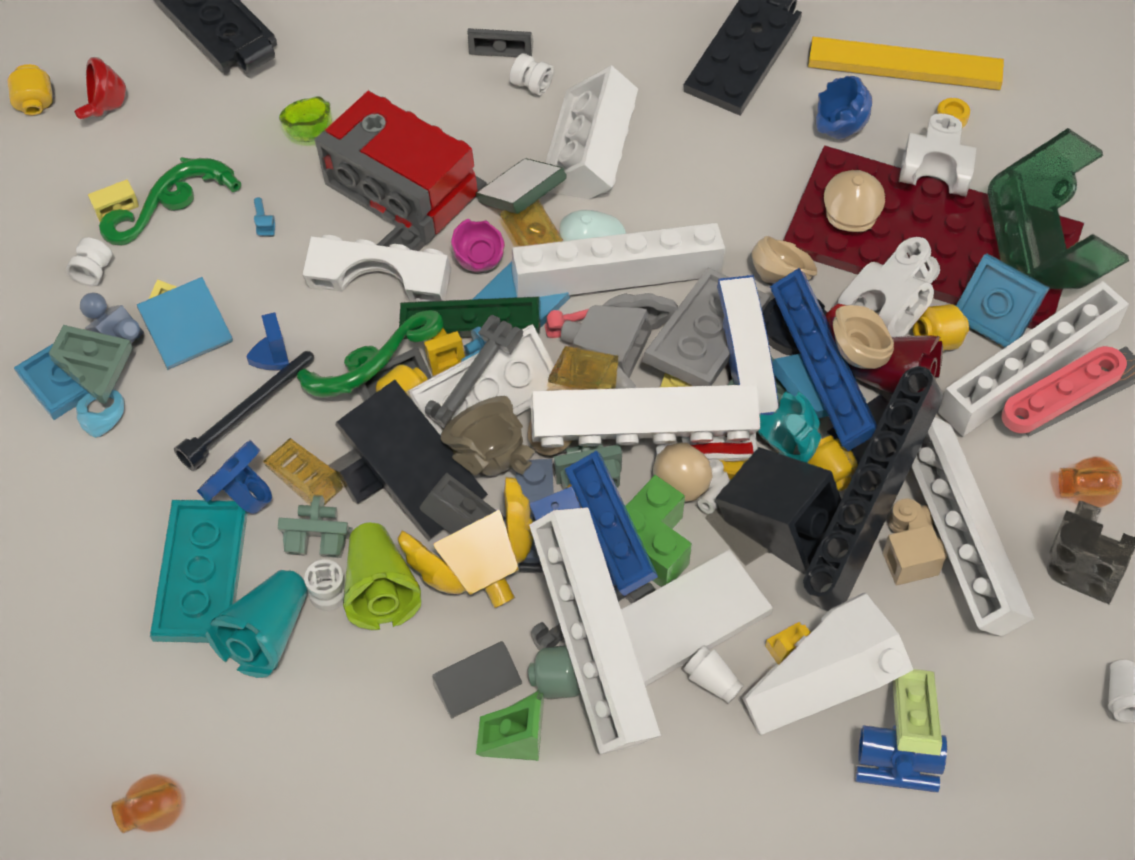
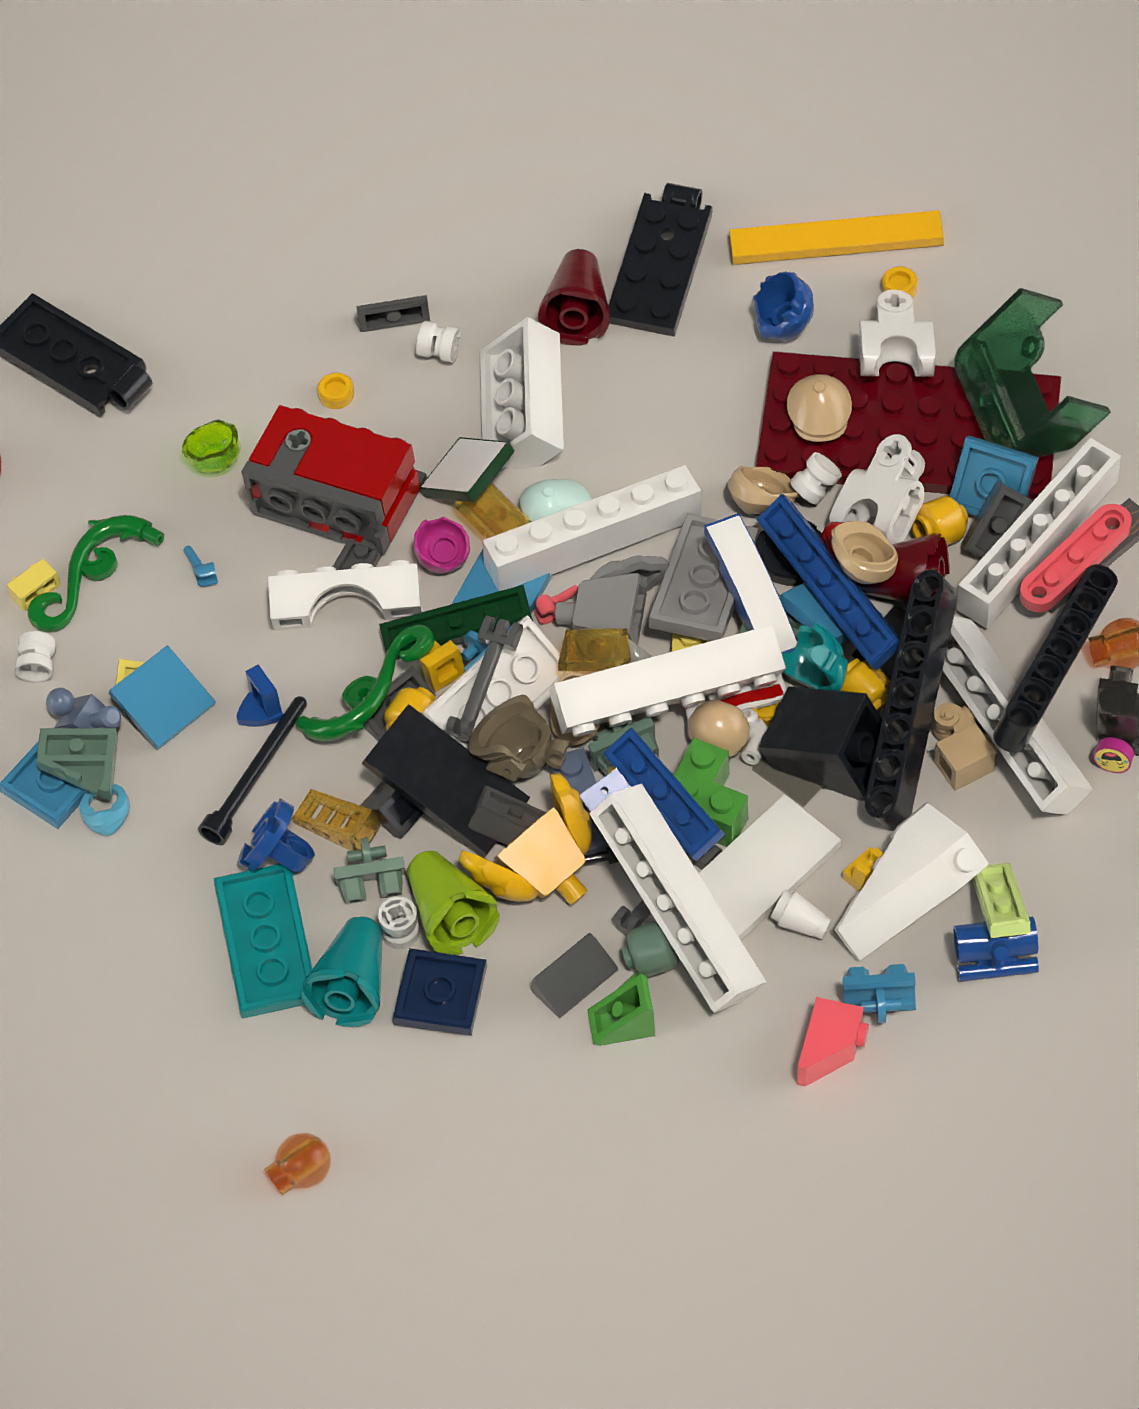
camera: 10 degrees left, 0 degrees up
(343, 663) = (440, 991): none -> dark blue plate
(431, 96) = (335, 390): none -> yellow tile
(660, 65) = (576, 300): none -> dark red cone
(710, 811) = (830, 1039): none -> coral slope
(770, 775) = (880, 992): none -> dark azure hips
(833, 263) = (815, 478): none -> white wheel
(994, 335) = (995, 517): none -> dark grey slope
(1023, 483) = (1055, 658): none -> black beam
(1061, 588) = (1113, 755): none -> tile

